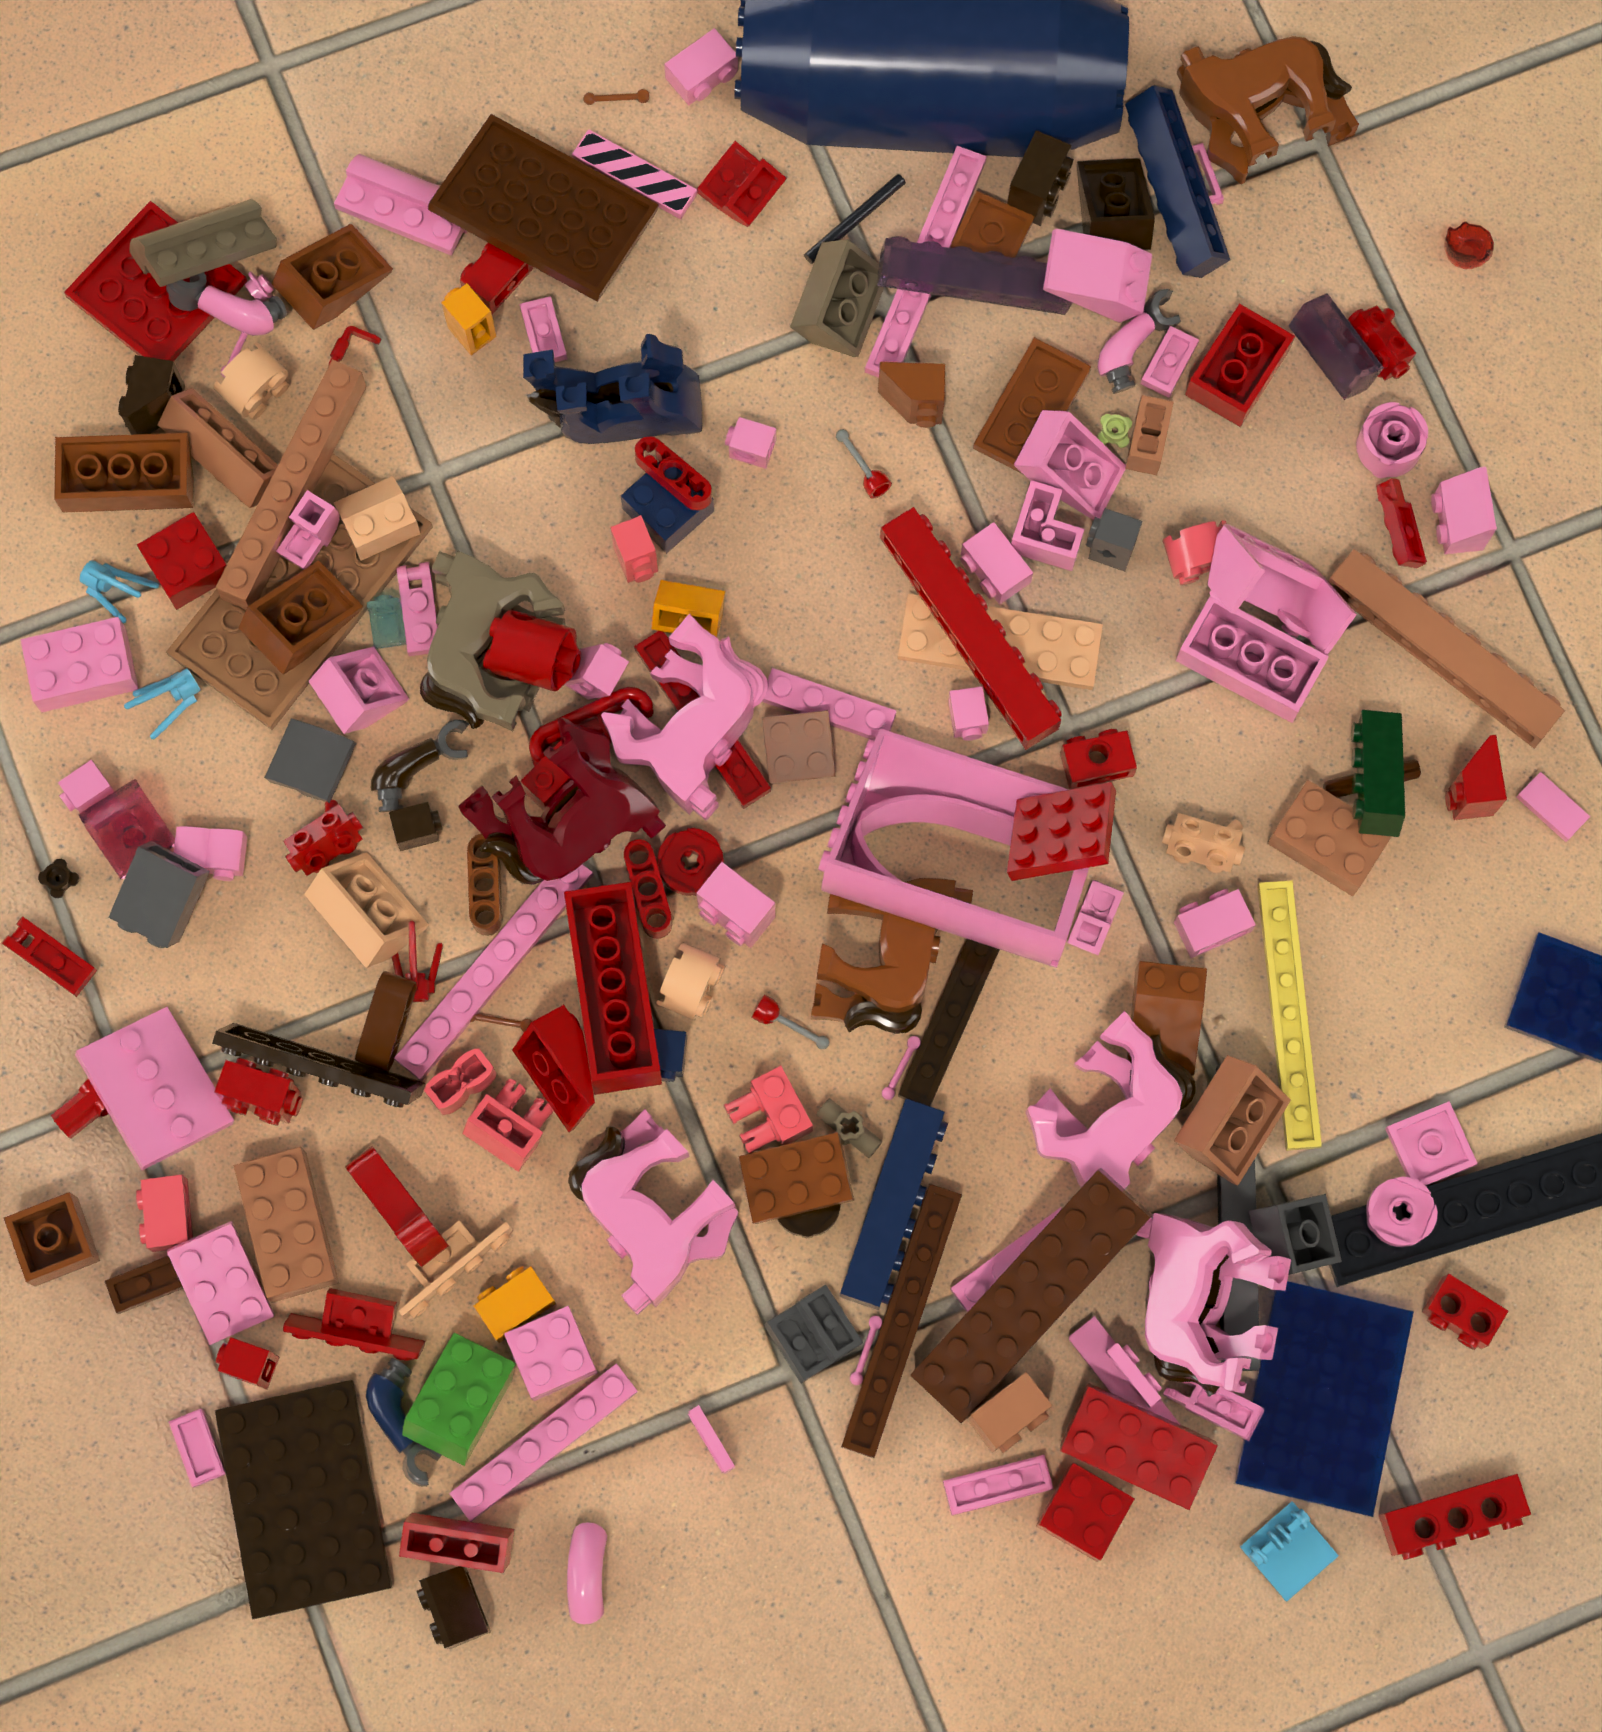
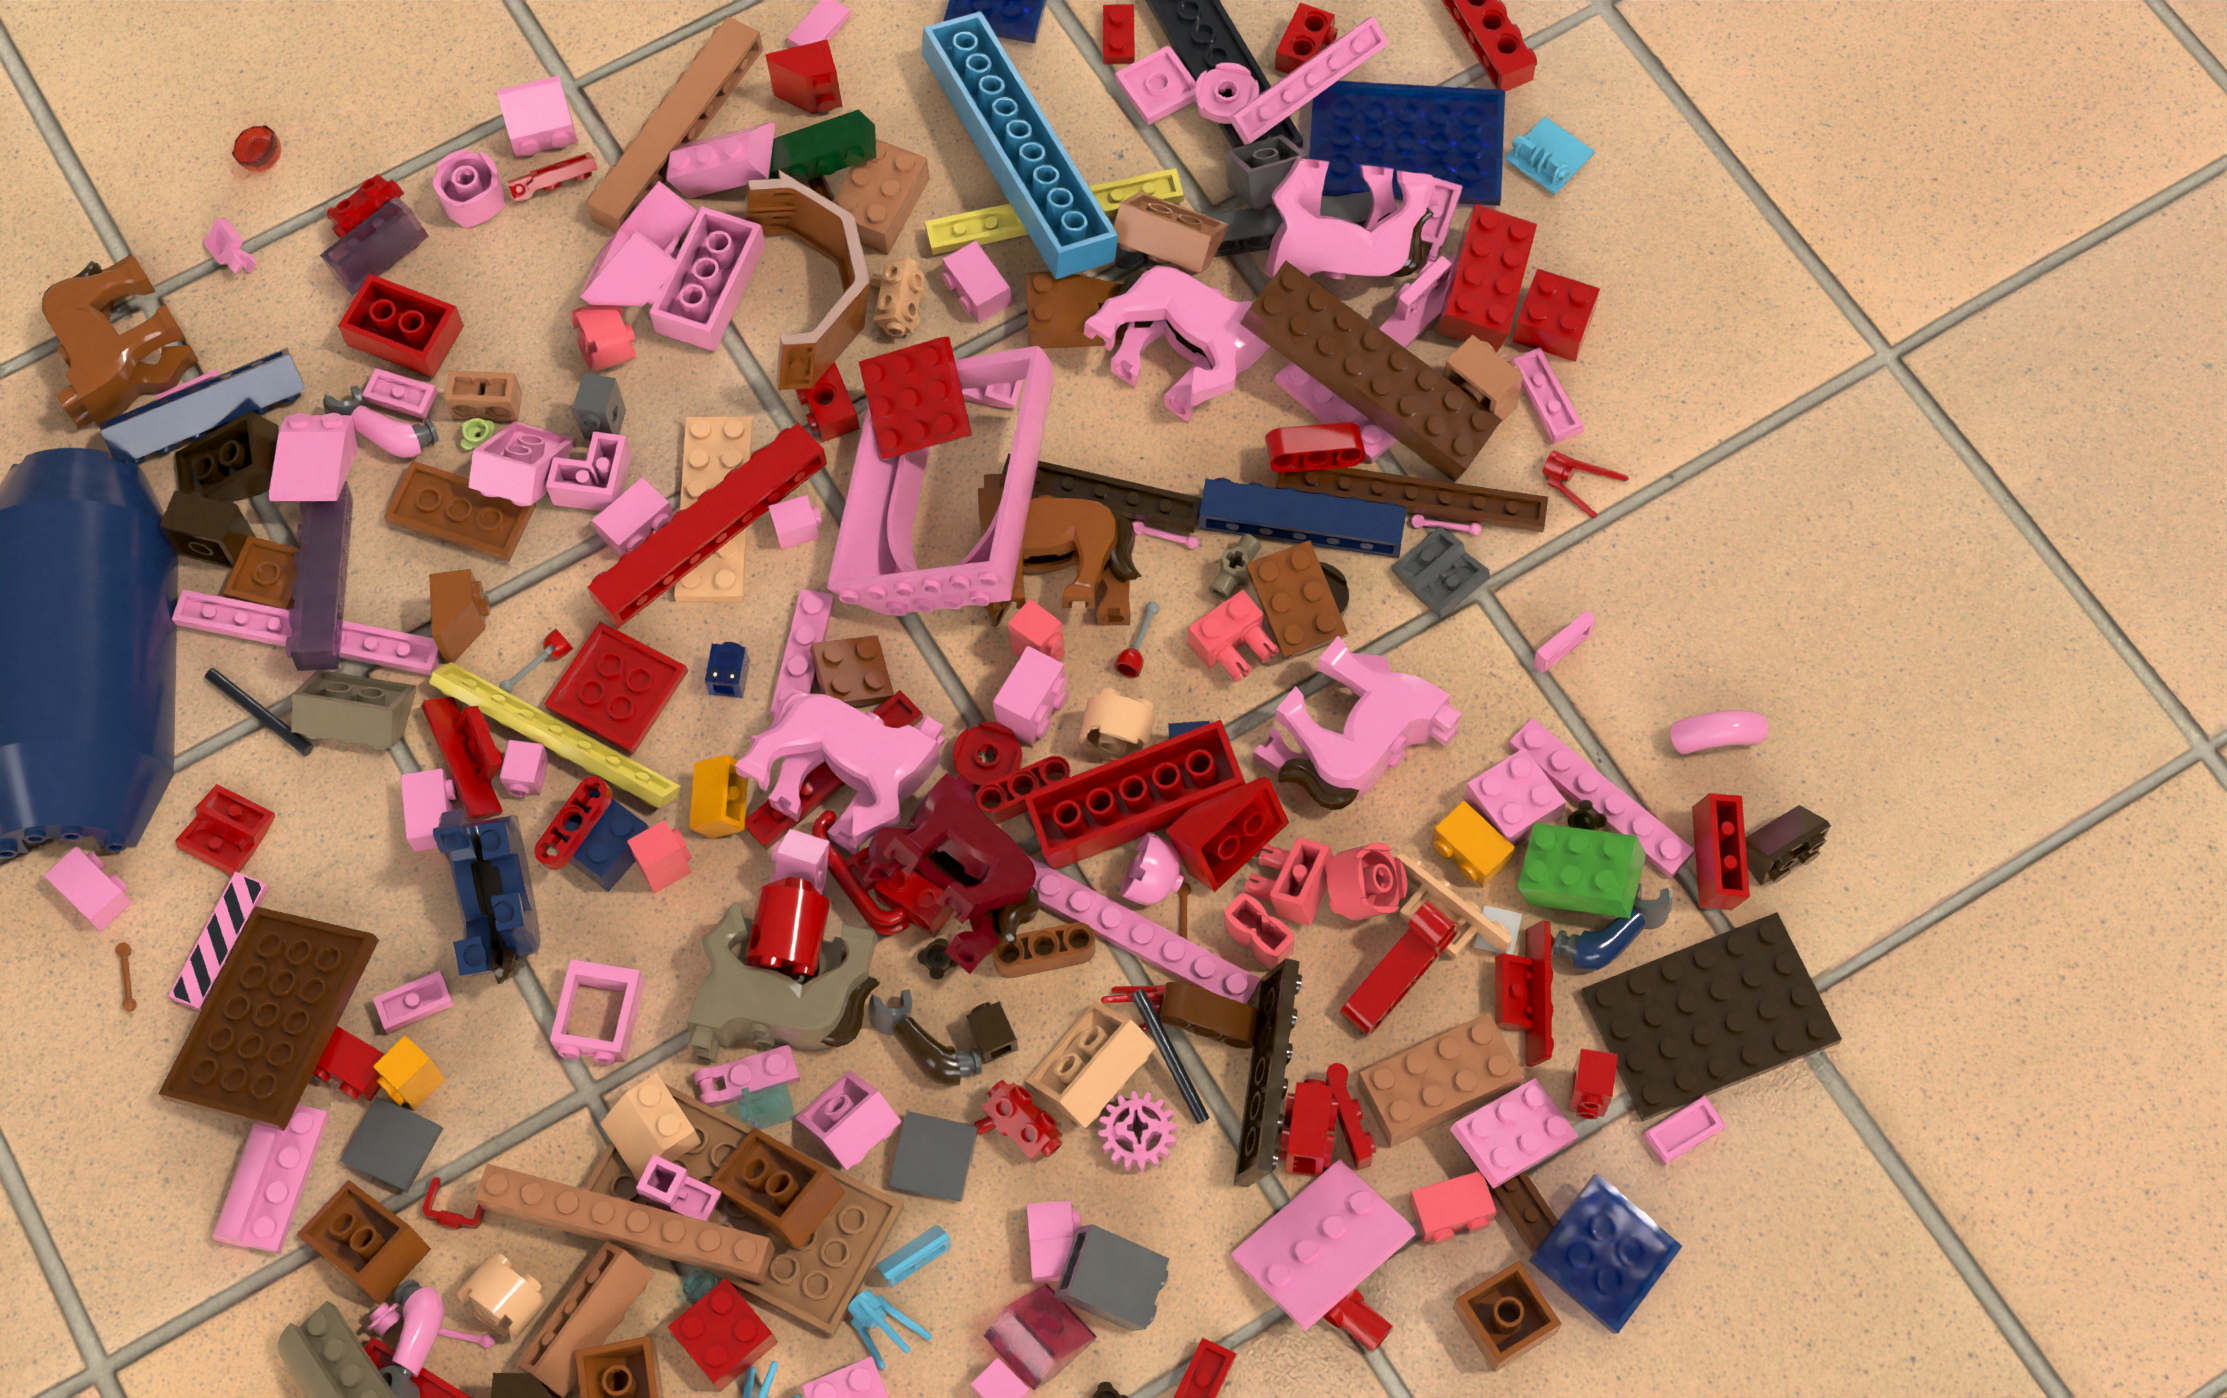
camera: 95 degrees left, 10 degrees down
(90, 1342) = (1605, 1253): none -> clear blue plate
(225, 731) = (914, 1255): none -> medium azure slope
(227, 545) = (698, 1285): none -> clear light blue plate
(272, 1135) = (1348, 1115): none -> red plate
(294, 955) = (1151, 1131): none -> bright pink gear
(355, 979) = (1170, 1056): none -> black bar
(412, 304) = (391, 1144): none -> dark grey slope
(435, 1319) = (1508, 919): none -> white sticker
(485, 1188) = (1365, 882): none -> coral brick
(500, 780) = (928, 956): none -> dark brown plate
(519, 1420) = (1586, 810): none -> dark brown plate
(532, 498) = (601, 977): none -> bright pink window
(538, 992) = (1152, 871): none -> bright pink cylinder
(725, 356) = (424, 800): none -> bright pink brick
(775, 392) = (467, 753): none -> red bracket
(781, 472) = (555, 735): none -> light yellow plate
(797, 921) = (1038, 630): none -> coral brick
(821, 532) = (616, 687): none -> red plate
(821, 633) = (727, 670): none -> clear blue brick
(908, 1480) = (1561, 467): none -> red plant
(962, 1227) = (1315, 447): none -> red beam
(1322, 740) = (798, 211): none -> dark orange panel
(1359, 212) = (225, 247): none -> bright pink plate
(1361, 981) = (1019, 145): none -> dark azure brick
(1390, 686) = (722, 161): none -> bright pink slope
(1404, 1301) = (1308, 80): none -> bright pink plate
(1505, 1116) = (1118, 34): none -> red plate

